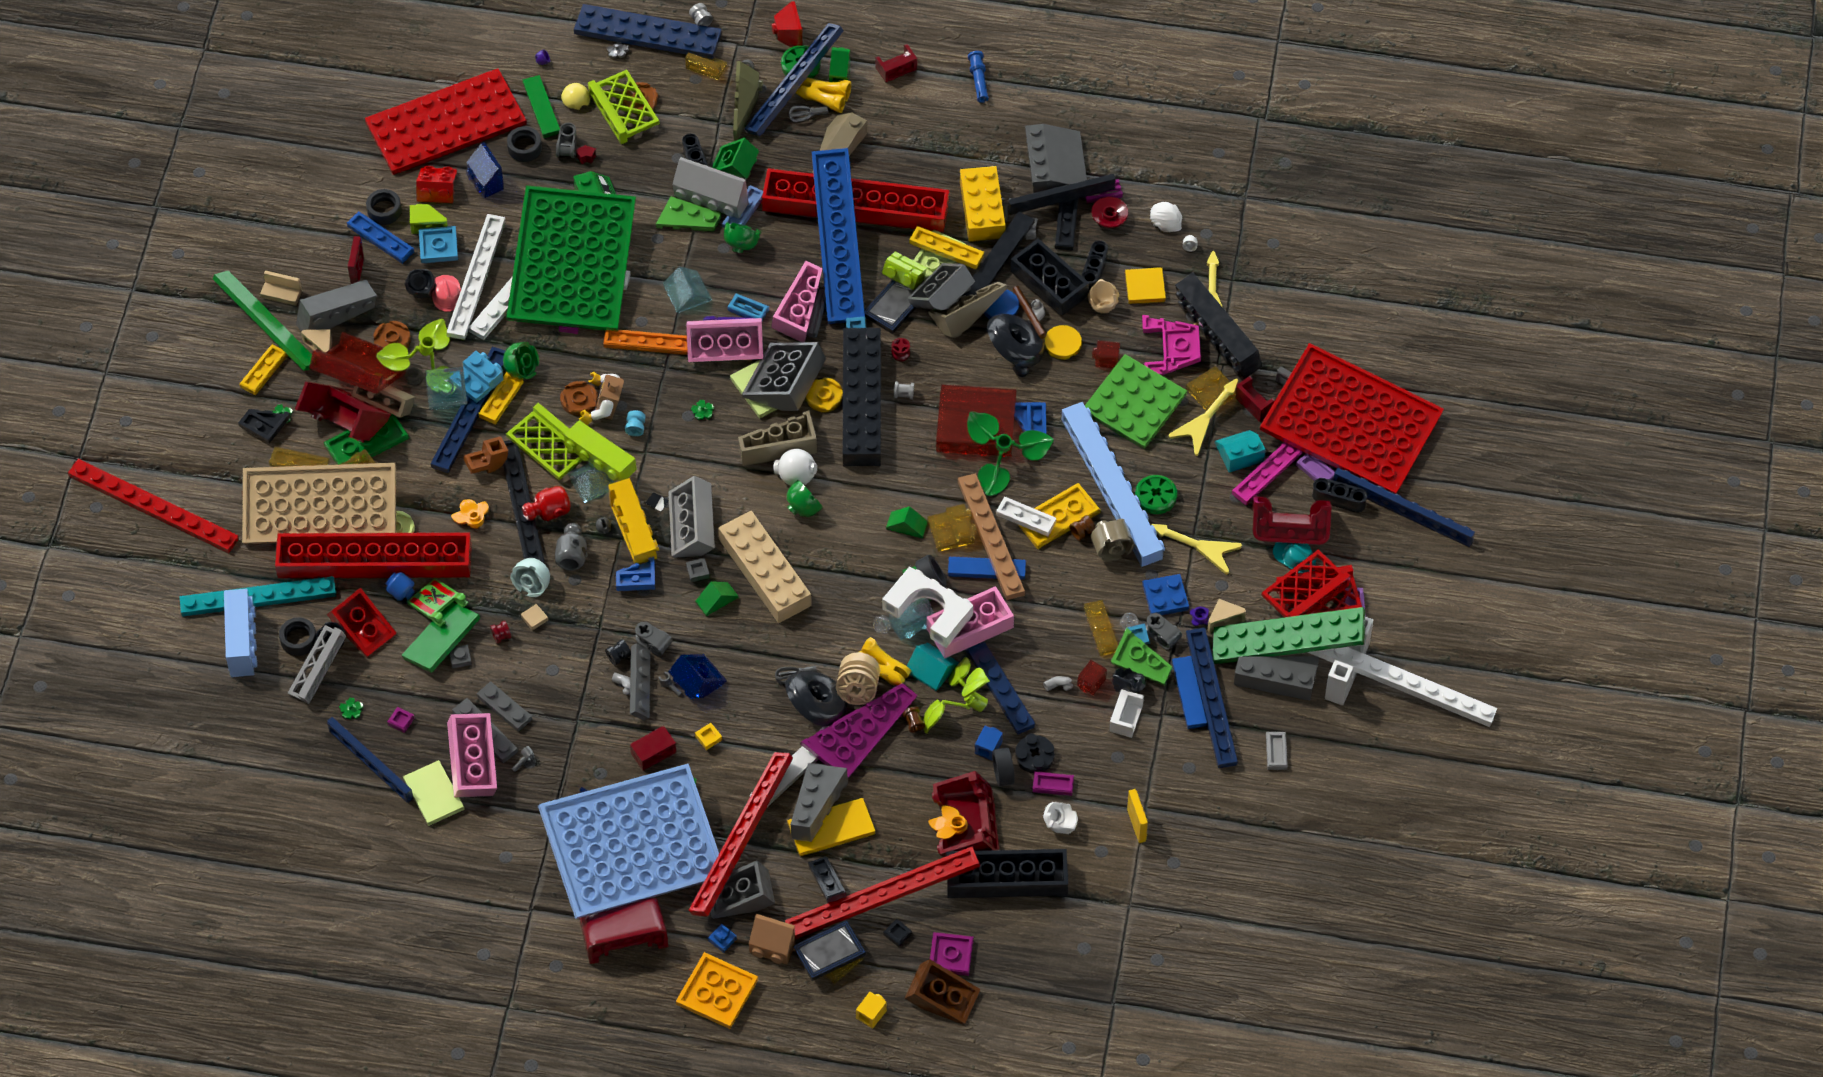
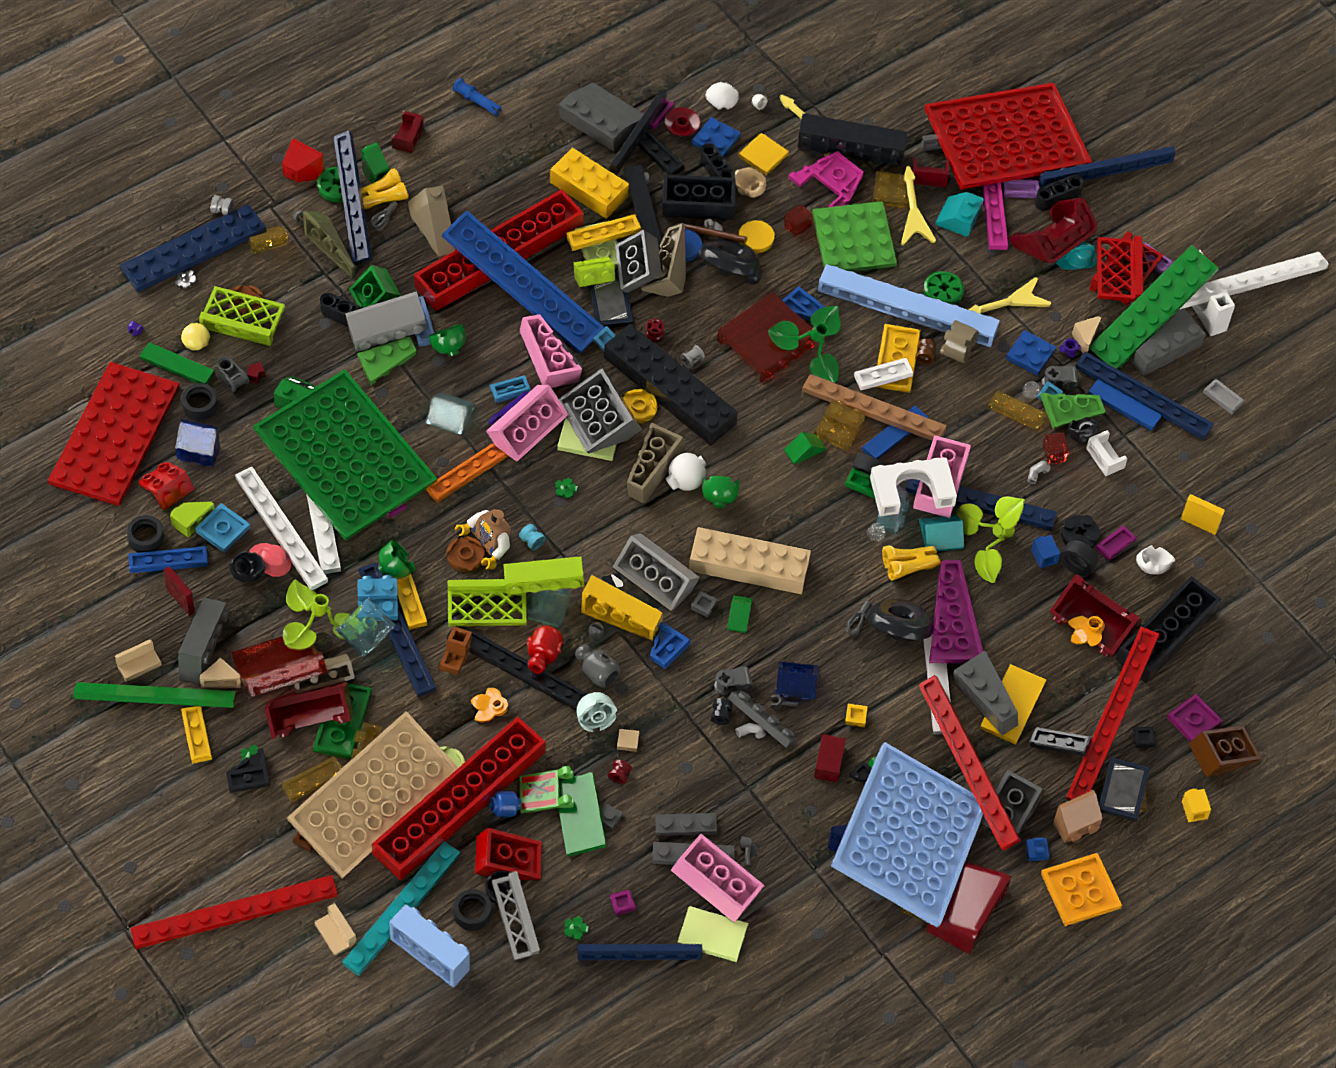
camera: 50 degrees left, 0 degrees up
(199, 573) = (336, 930): none -> tan panel
(392, 333) = (267, 625): dark orange tile -> none
(858, 678) = (915, 581): tan wheel -> none
(914, 719) = (977, 579): reddish brown bush -> none
(1124, 245) = (718, 134): none -> blue plate

